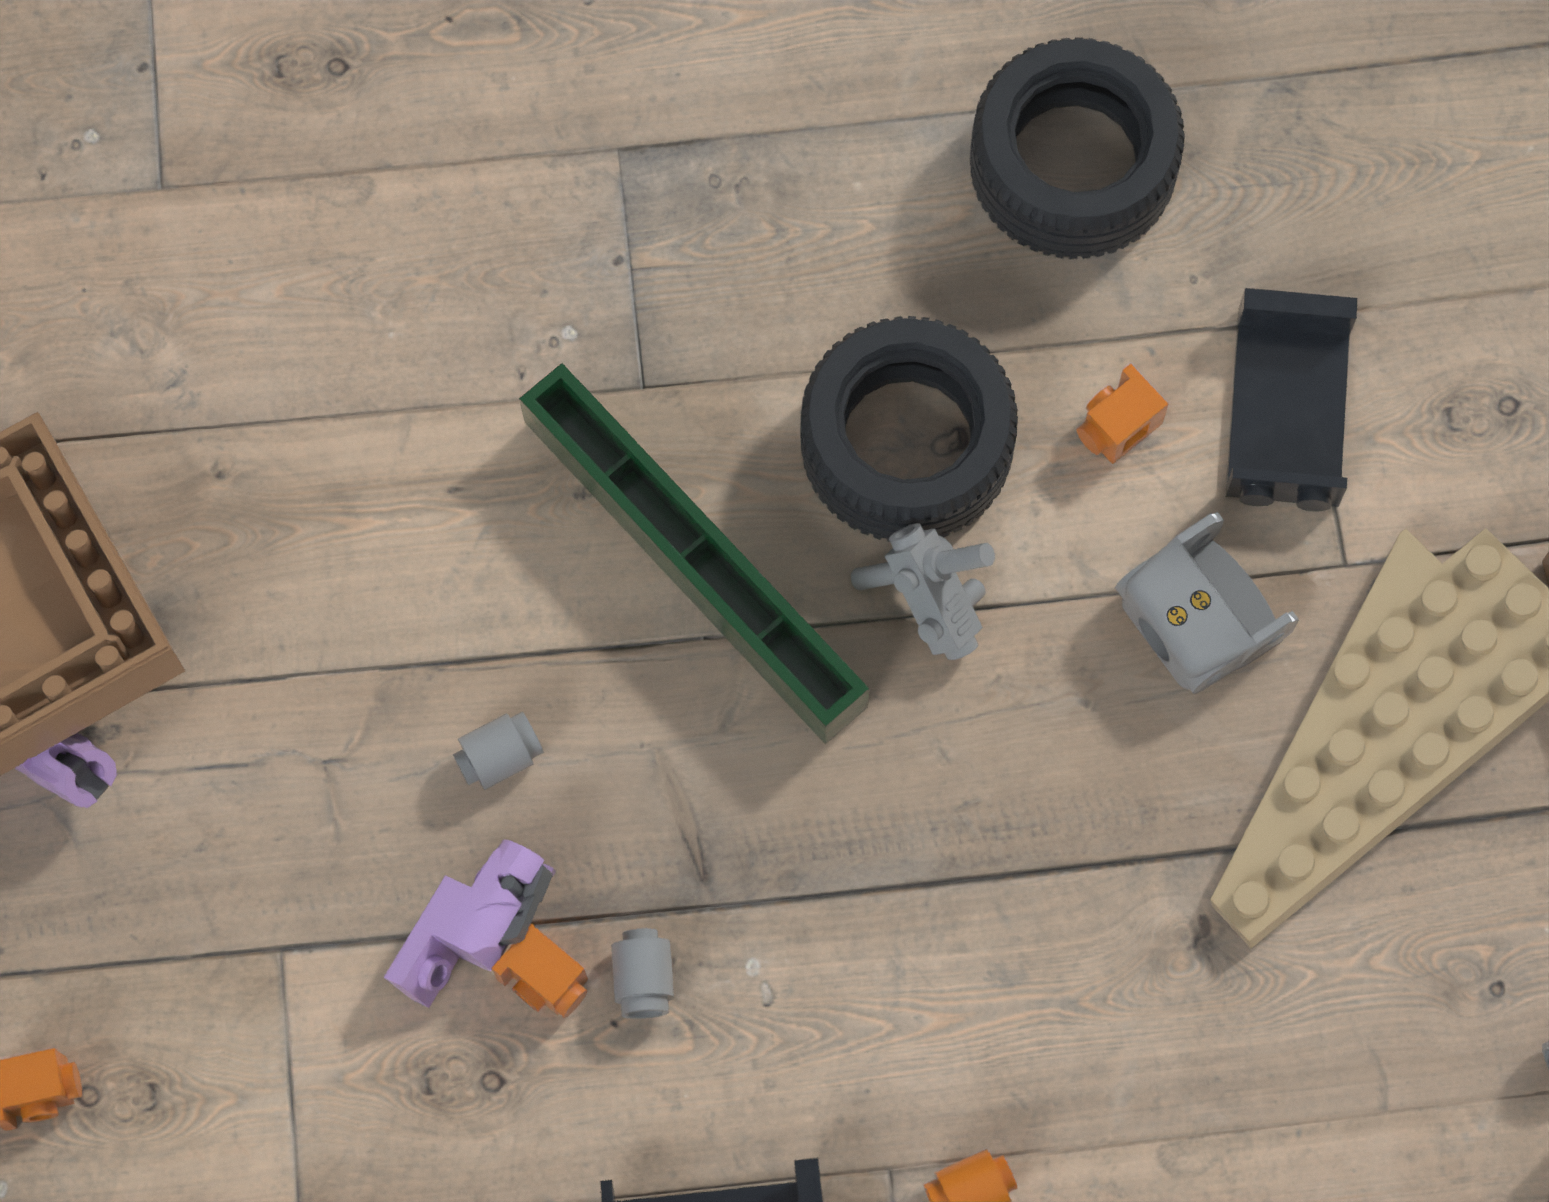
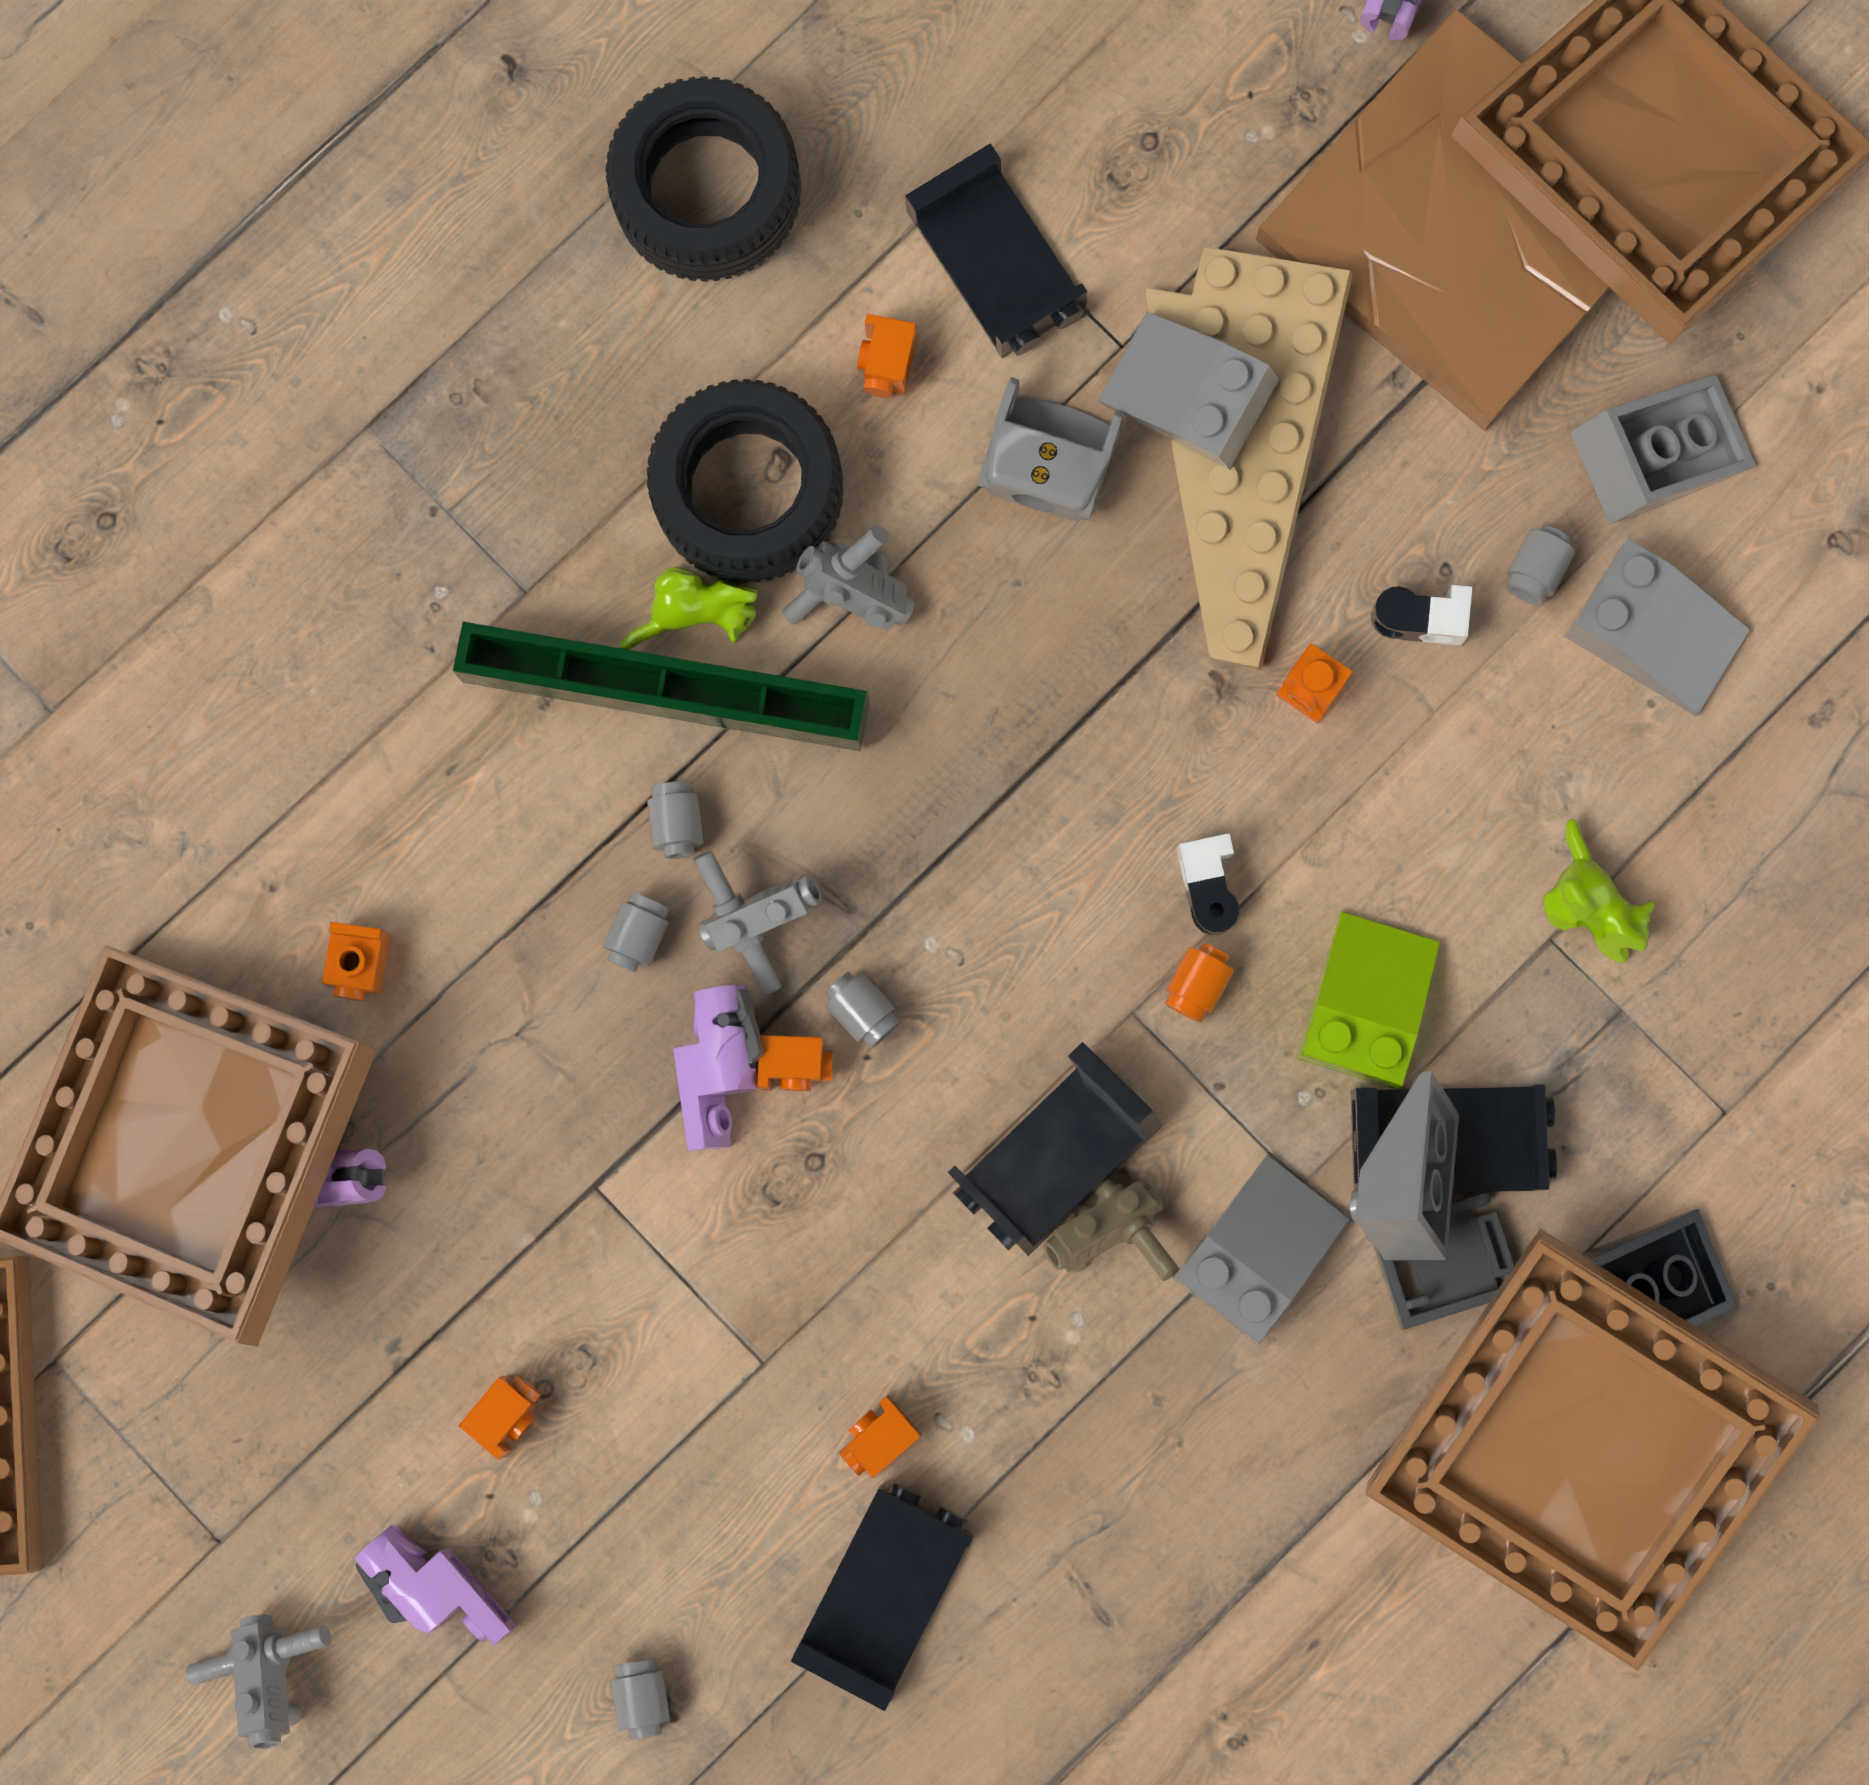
camera: 30 degrees left, 10 degrees up
(256, 592) = (372, 949): none -> orange brick
(599, 811) = (741, 921): none -> light grey piece
(611, 677) = (675, 819): none -> light grey brick
(775, 494) = (688, 601): none -> lime animal
(1038, 1125) = (1210, 903): none -> leg
(1291, 996) = (1314, 683): none -> orange brick
(1377, 644) = (1190, 388): none -> light grey slope
(1439, 1014) = (1423, 618): none -> leg

